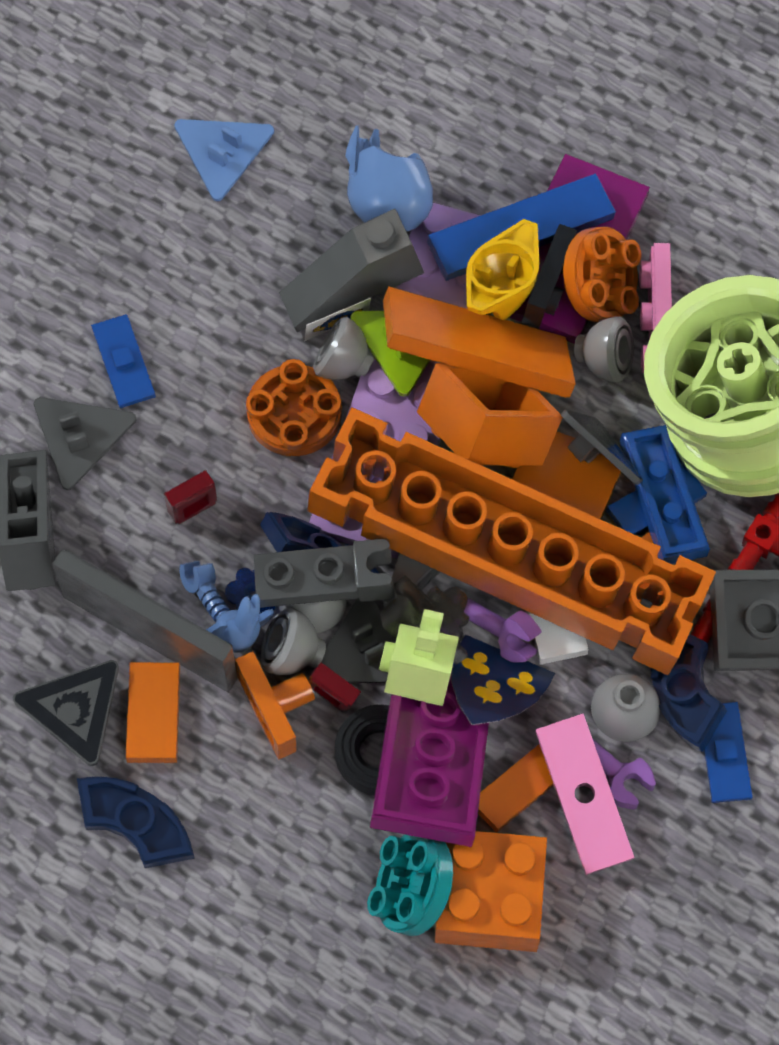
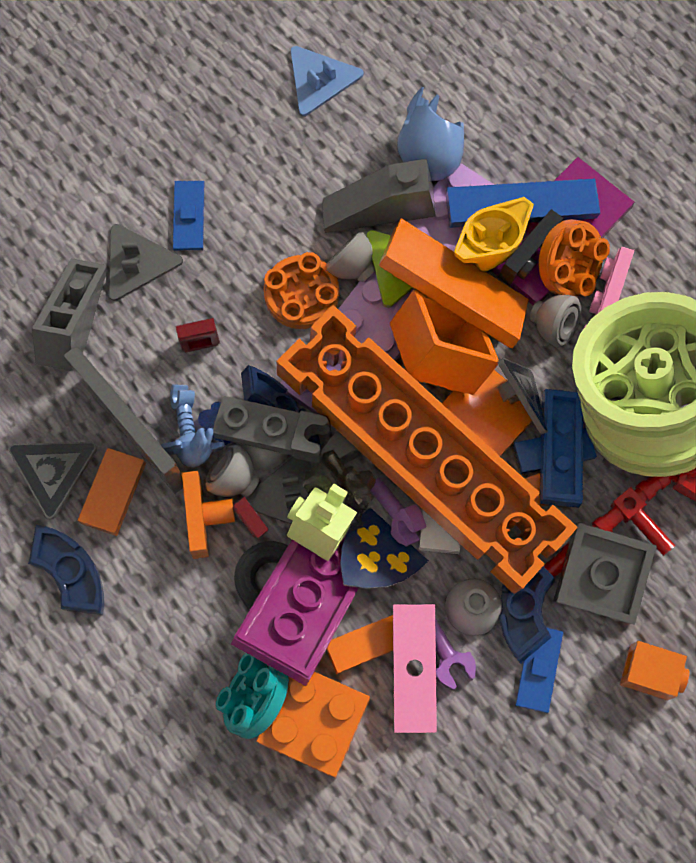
camera: 20 degrees right, 5 degrees up
(325, 324) = (348, 232): white sticker -> none

